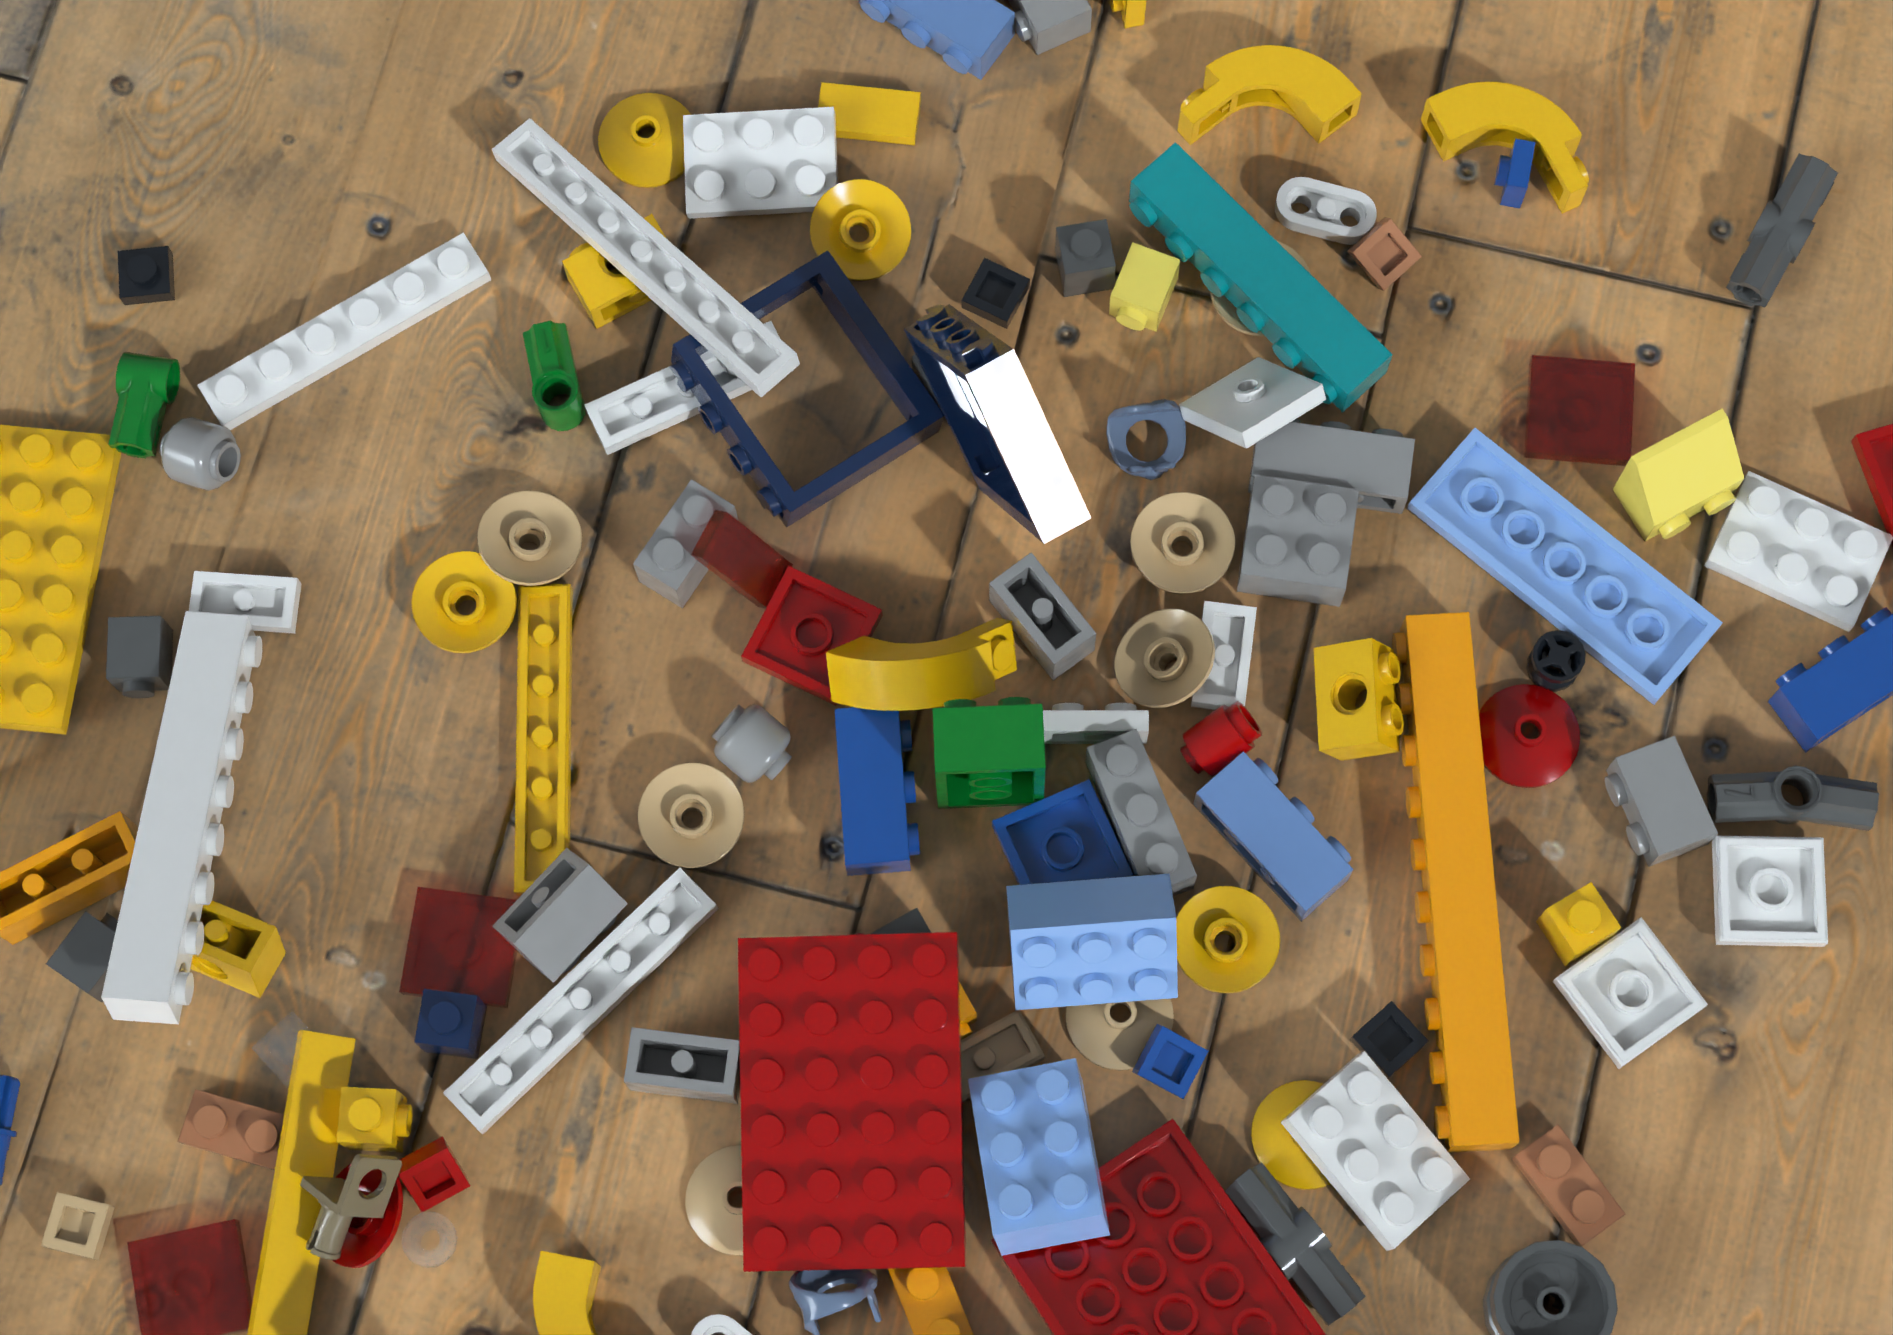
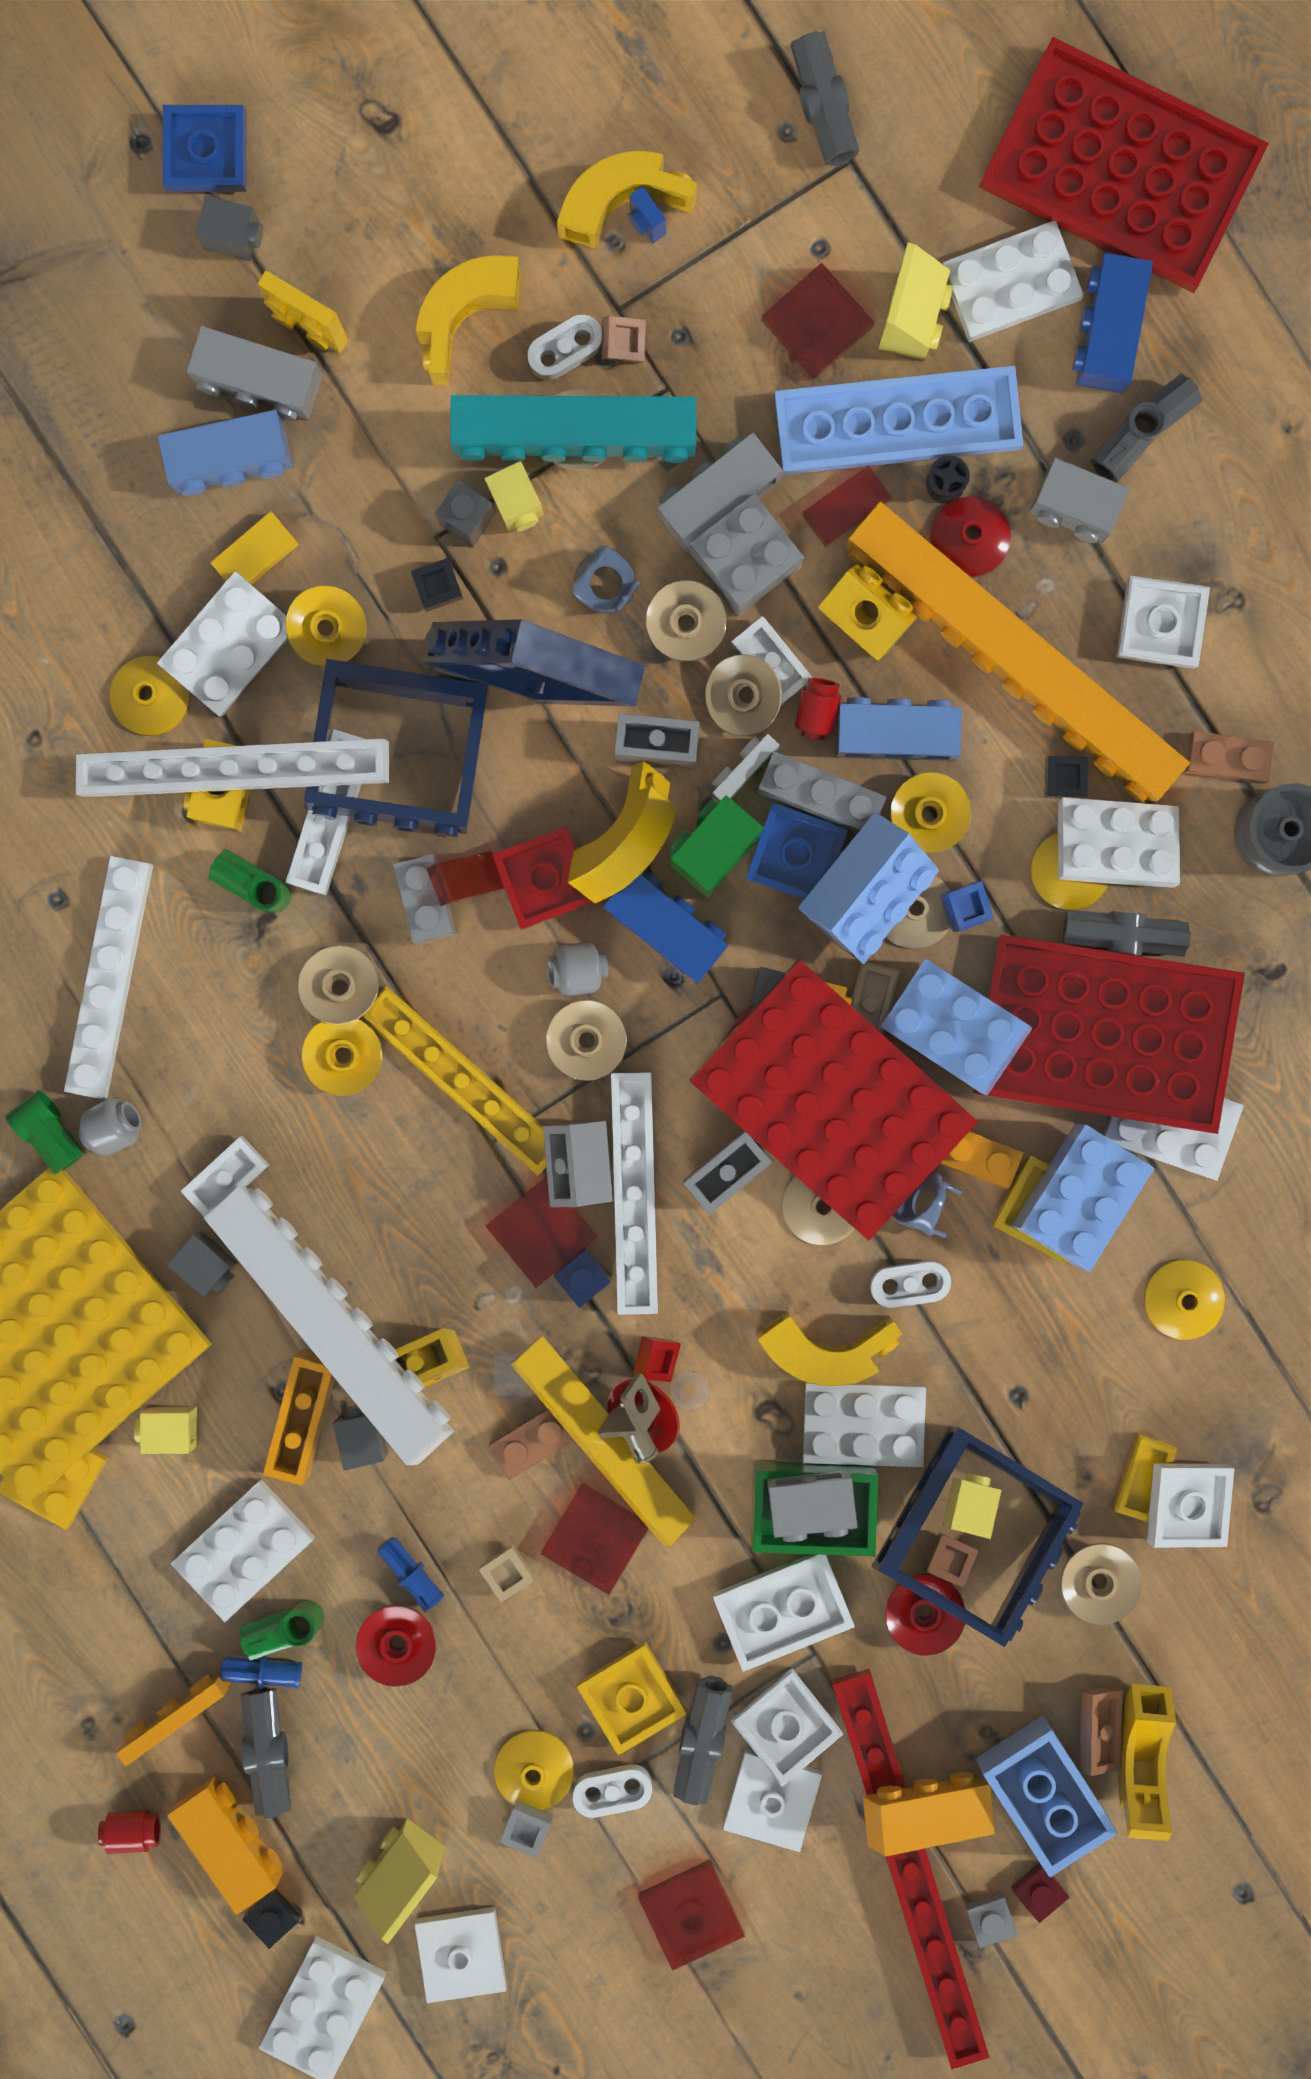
camera: 50 degrees left, 15 degrees up
(373, 1119) = (598, 1365): yellow brick -> none
(1252, 402) = (645, 502): white plate -> none
(1436, 589) = (846, 506): none -> clear red tile
(1578, 924) = (1103, 613): yellow brick -> none
(1769, 891) = (1181, 491): white plate -> none

